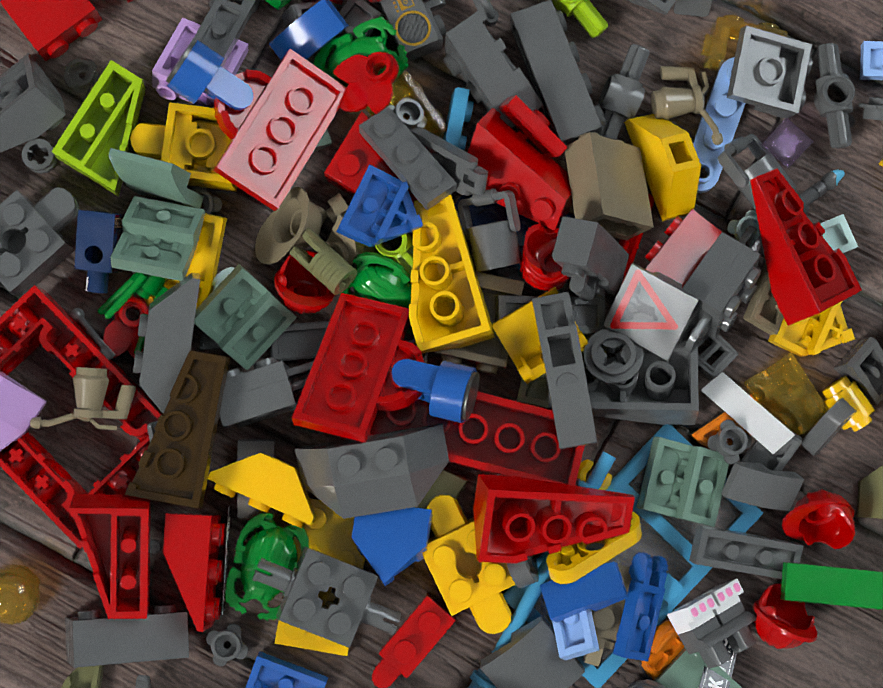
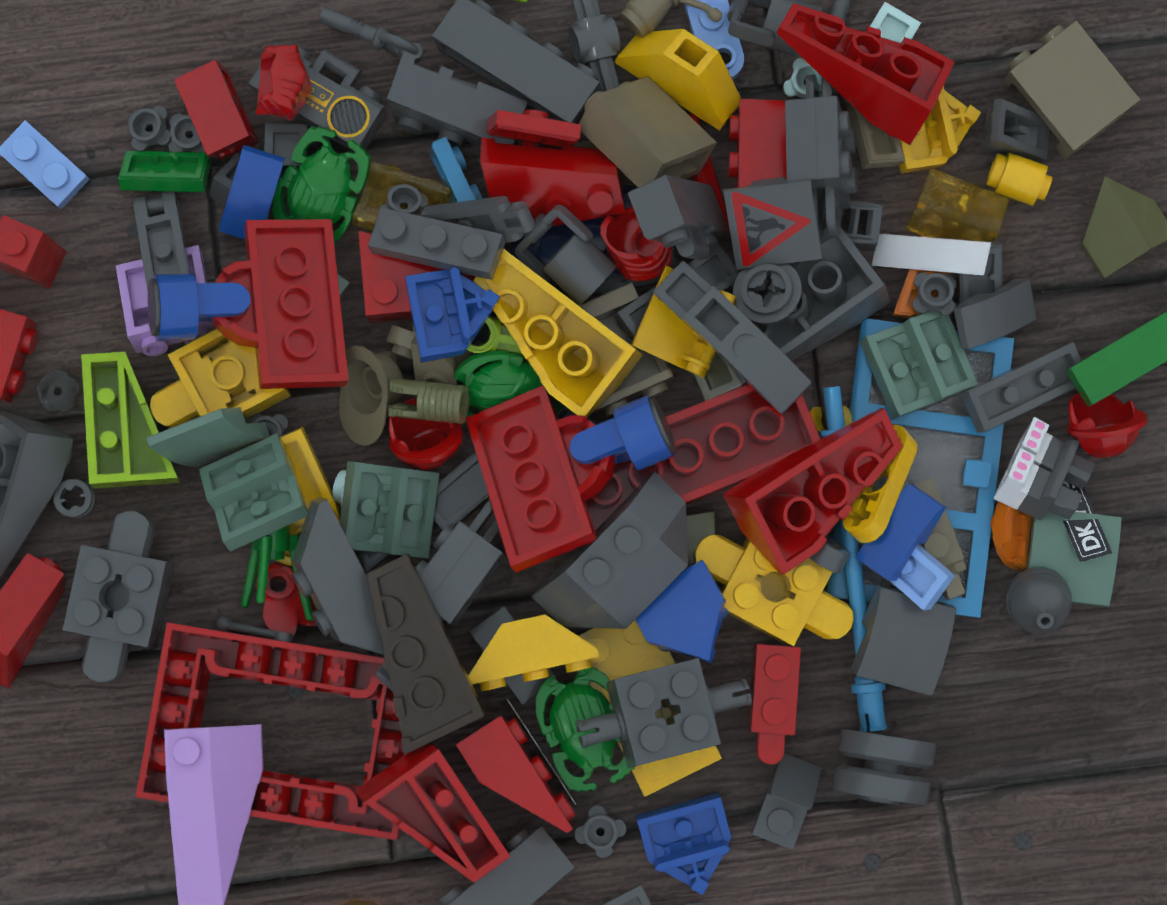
camera: 30 degrees left, 0 degrees up
(90, 392) = (297, 682): dark tan piece -> none
(95, 232) = (197, 523): dark blue torso -> none
(364, 83) = (343, 204): red plate -> none
(641, 607) = (965, 508): blue hinge -> none
(822, 519) = (1072, 304): red piece -> none
(828, 426) = (1016, 213): dark grey beam -> none

